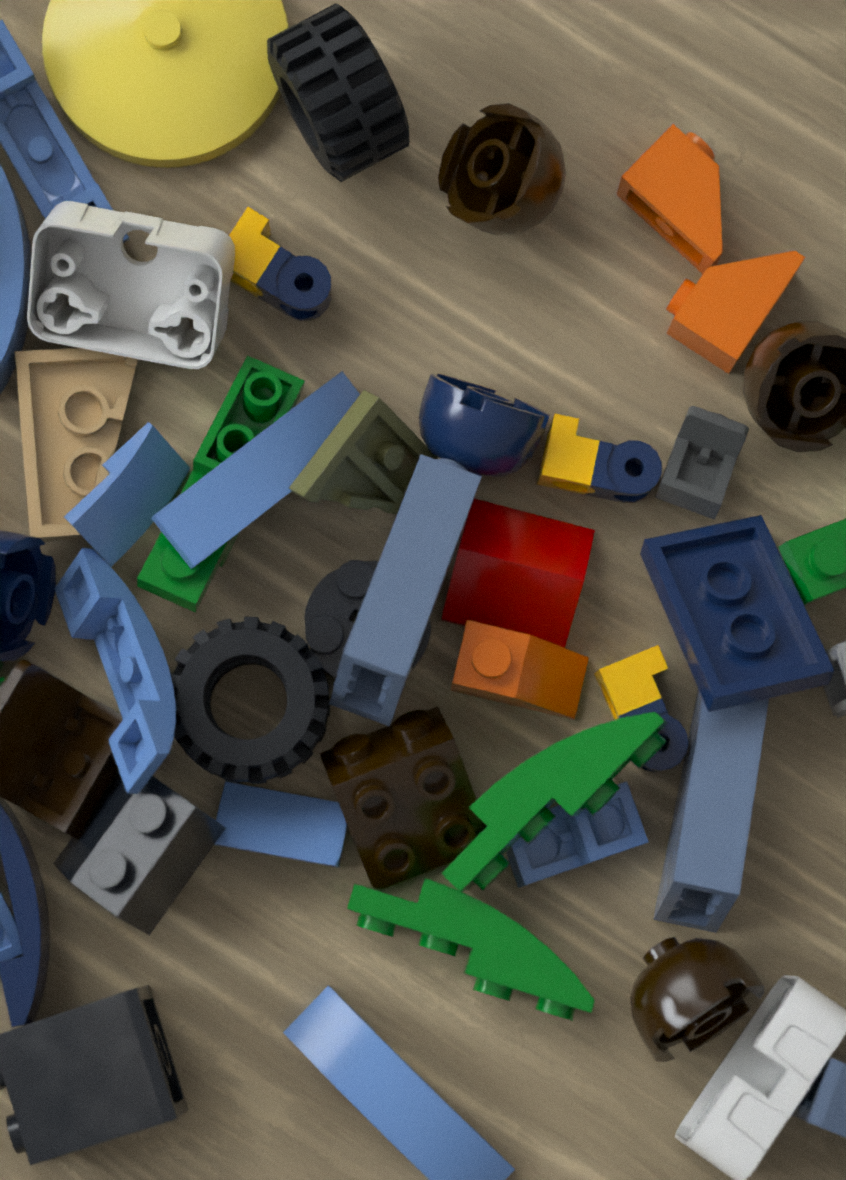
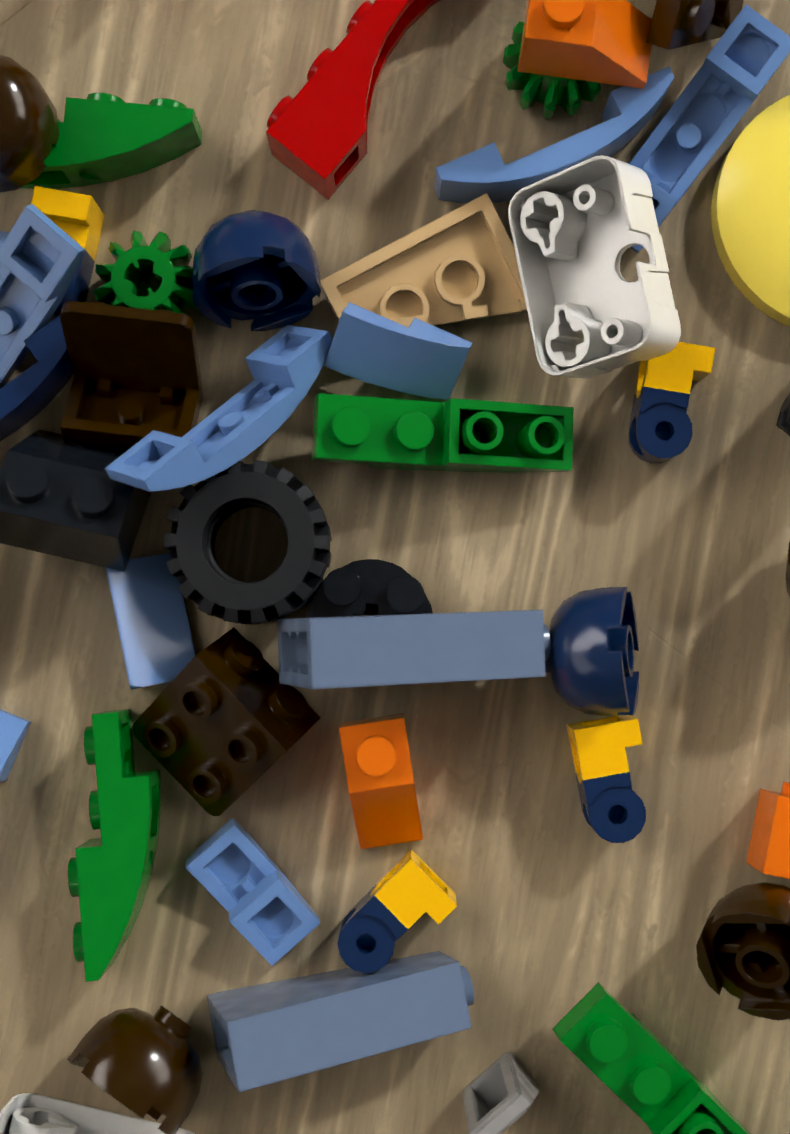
camera: 70 degrees right, 5 degrees up
(254, 475) = (469, 470): medium blue slope -> none
(363, 459) = (517, 557): olive wing -> none
(518, 572) = (473, 745): red slope -> none
(571, 772) = (298, 873): green slope -> none
(702, 462) = (650, 875): dark grey bracket -> none
(736, 613) = (516, 970): dark blue plate -> none

